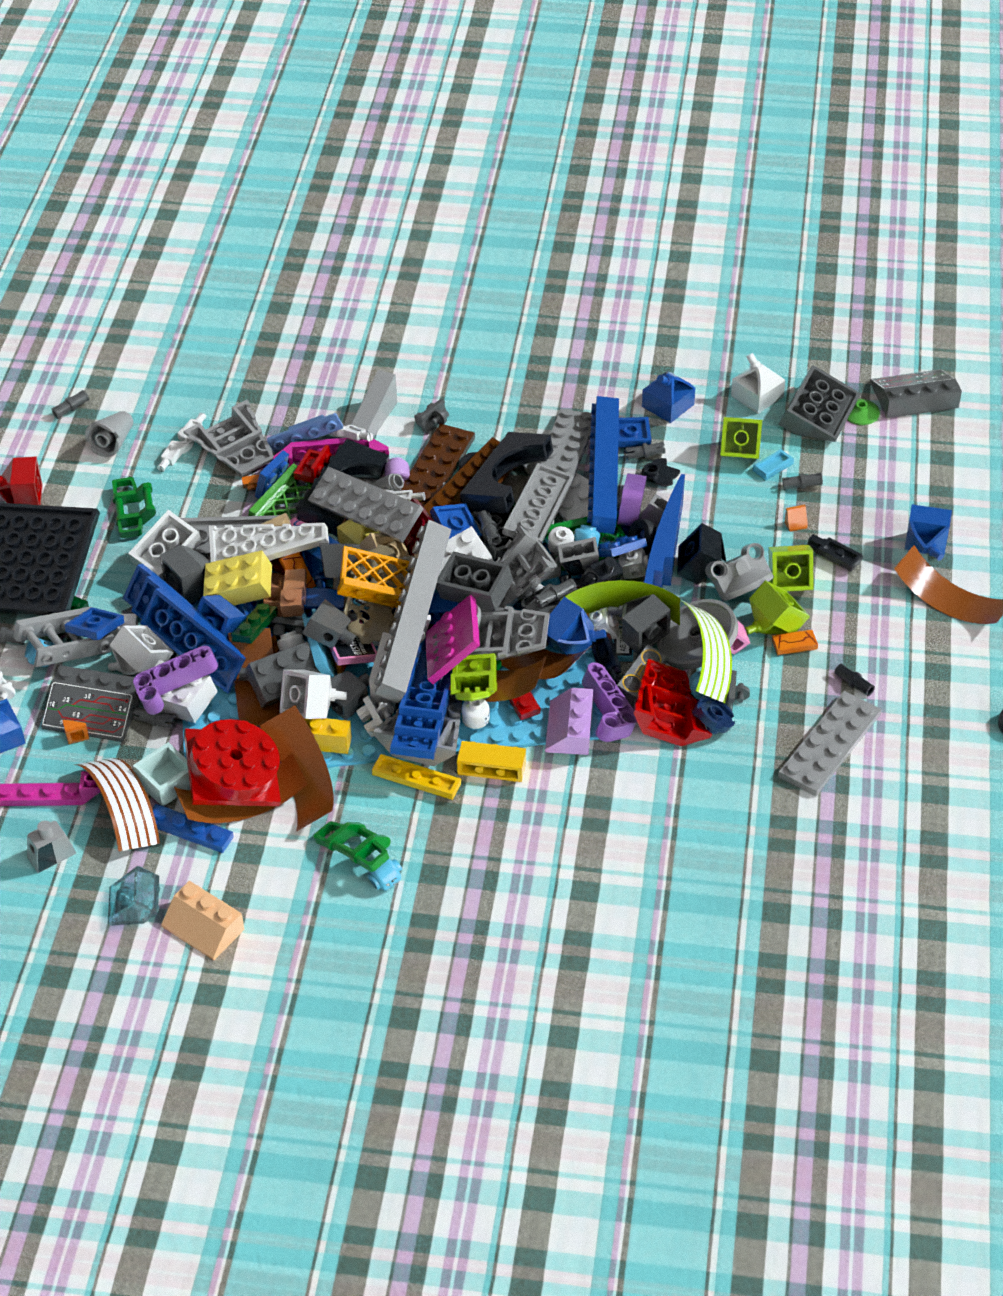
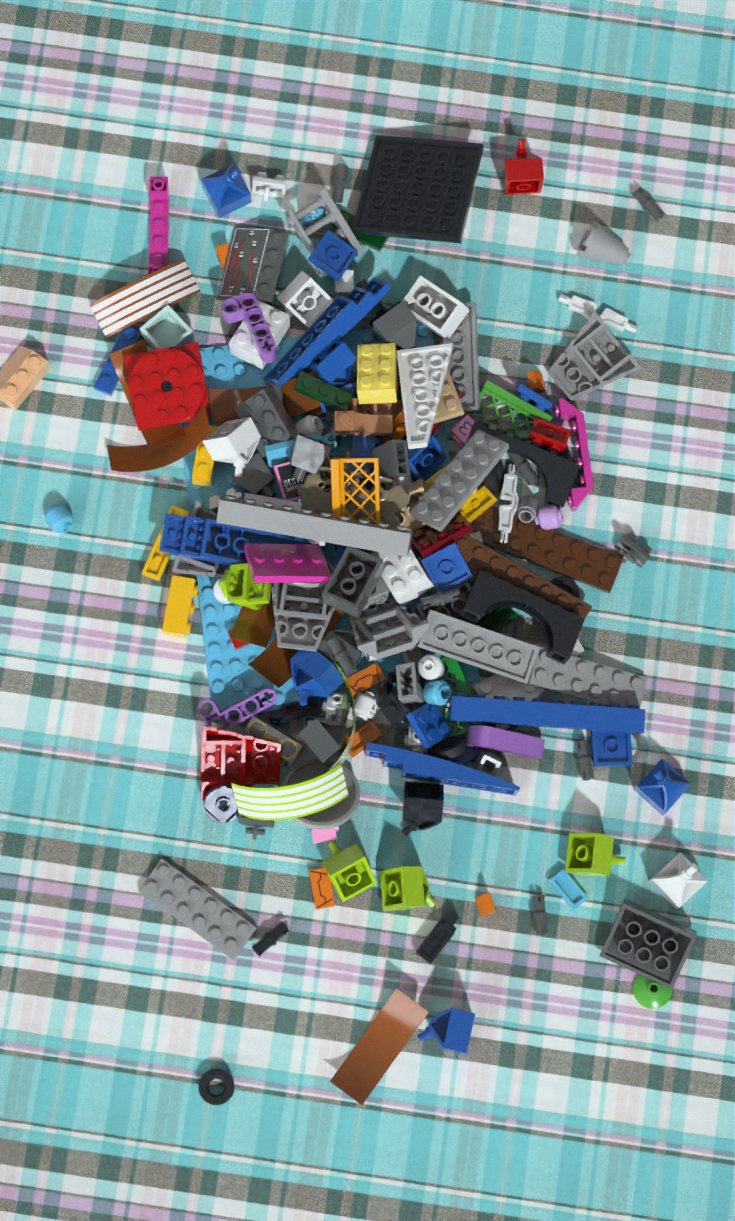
camera: 85 degrees right, 30 degrees up
(48, 846) = (94, 247): light grey torso -> none
(134, 898) = (42, 321): clear light blue slope -> none
(138, 494) = (515, 262): green bar -> none
(305, 431) = (601, 427): medium blue bracket -> none
(353, 432) = (598, 465): white piece -> none
(362, 851) = (80, 505): green bar -> none
(377, 402) = (636, 491): light grey slope -> none
(570, 722) = (216, 674): lavender slope -> none
(660, 472) = (555, 777): black plate -> none
(740, 573) = (385, 837): light grey piece -> none
(917, 393) = (681, 1049): dark grey slope -> none

